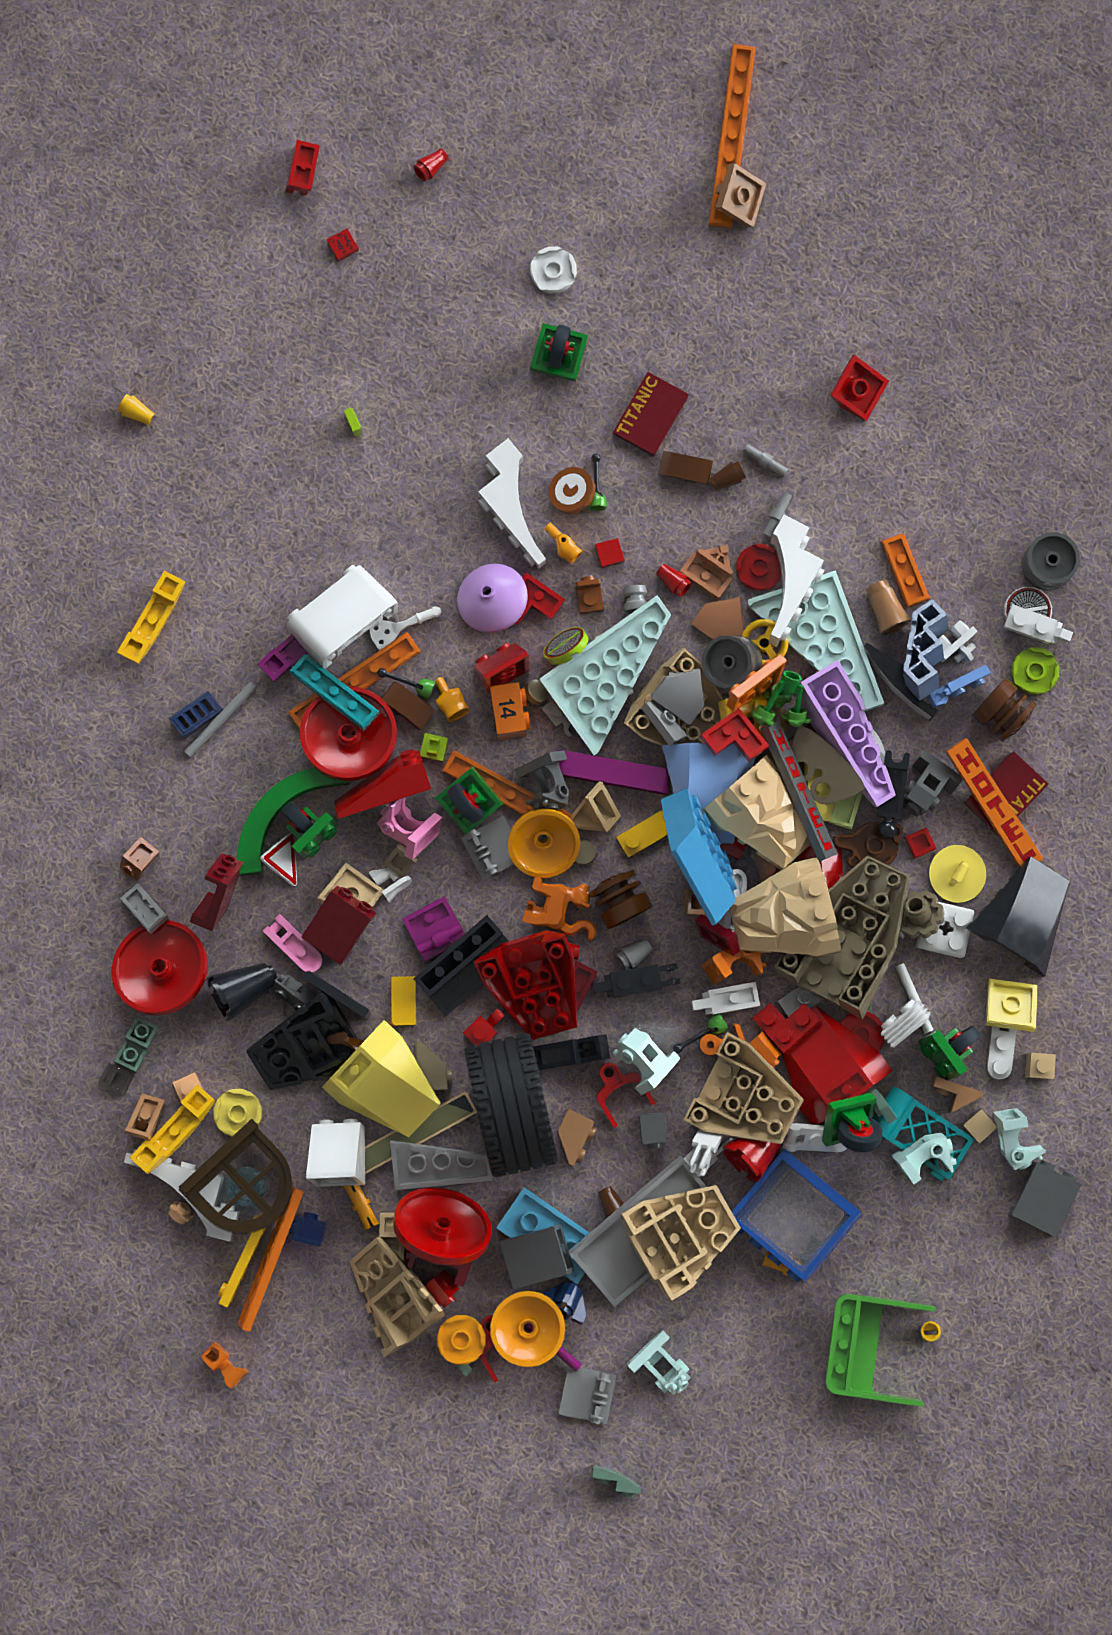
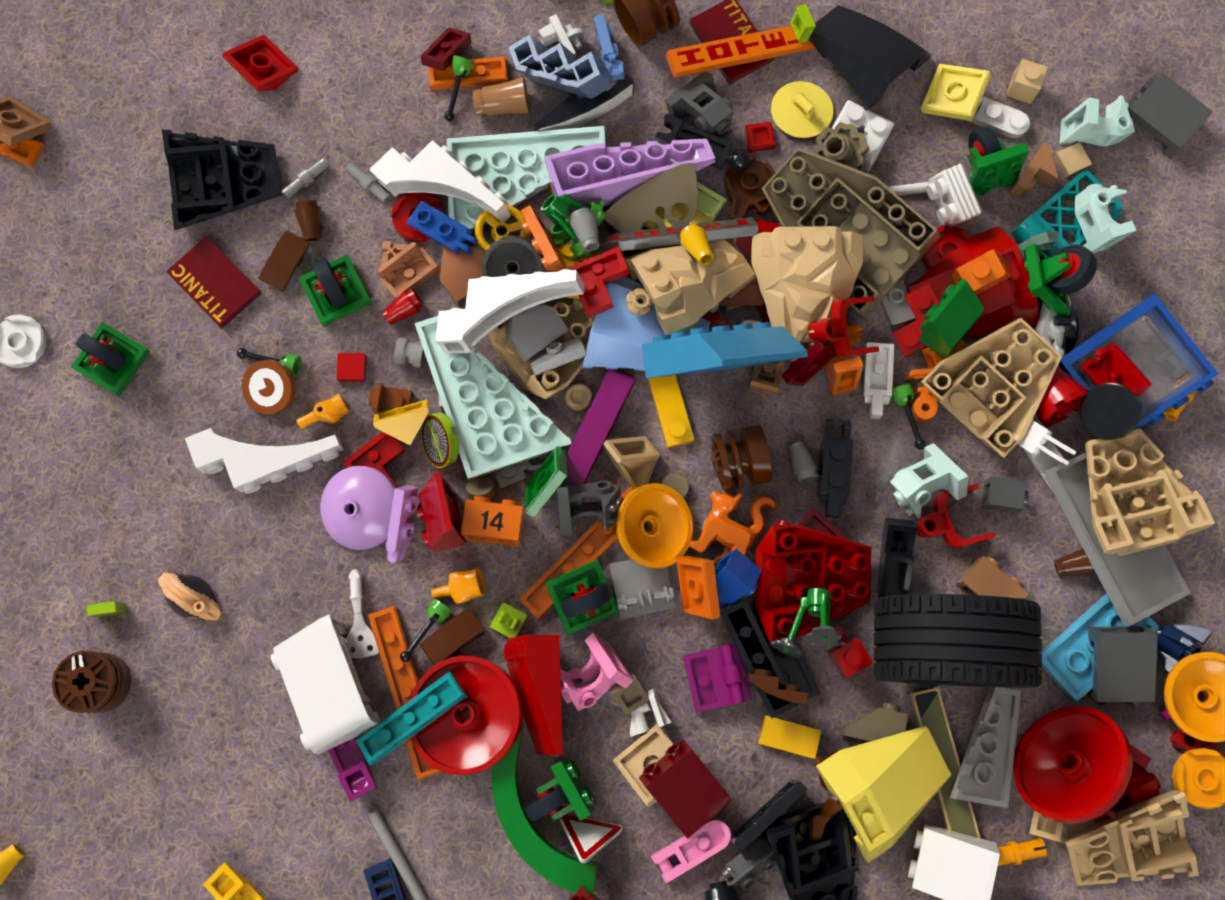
camera: 70 degrees left, 5 degrees down
(295, 445) = (107, 686): none -> reddish brown wheel
(382, 483) = (189, 596): none -> light nougat hat
(438, 967) = (769, 684): none -> reddish brown slope
(489, 635) = (401, 522): none -> lavender hinge
(502, 891) = (698, 587): none -> orange tile
(513, 992) = (823, 636): none -> plant
(515, 917) = (735, 578): none -> blue slope
(554, 743) = (545, 481): none -> green tile
(573, 610) = (402, 421): none -> yellow slope
(637, 751) = (578, 397): none -> tan tile
(672, 518) = (334, 289): none -> green plate
(690, 655) = (496, 300): none -> white arch
(720, 775) = (633, 305): none -> tan plate
(743, 387) = (217, 175): none -> black wedge
(744, 1195) = (1110, 411): none -> black tile
(747, 945) = (835, 328): none -> red piece
(750, 591) = (441, 229): none -> blue hinge
(778, 712) = (585, 228): none -> light grey cone
(780, 1197) = (1115, 366): none -> red hinge
(785, 1042) = (951, 319): none -> green slope
(790, 810) = (696, 243): none -> yellow cone
(818, 1151) = (1072, 328): none -> black bar
(834, 1059) = (983, 271): none -> orange torso
(904, 564) = (461, 68): none -> hinge
(918, 544) = (443, 49): none -> dark red plate
(1033, 851) = (802, 23): none -> lime tile

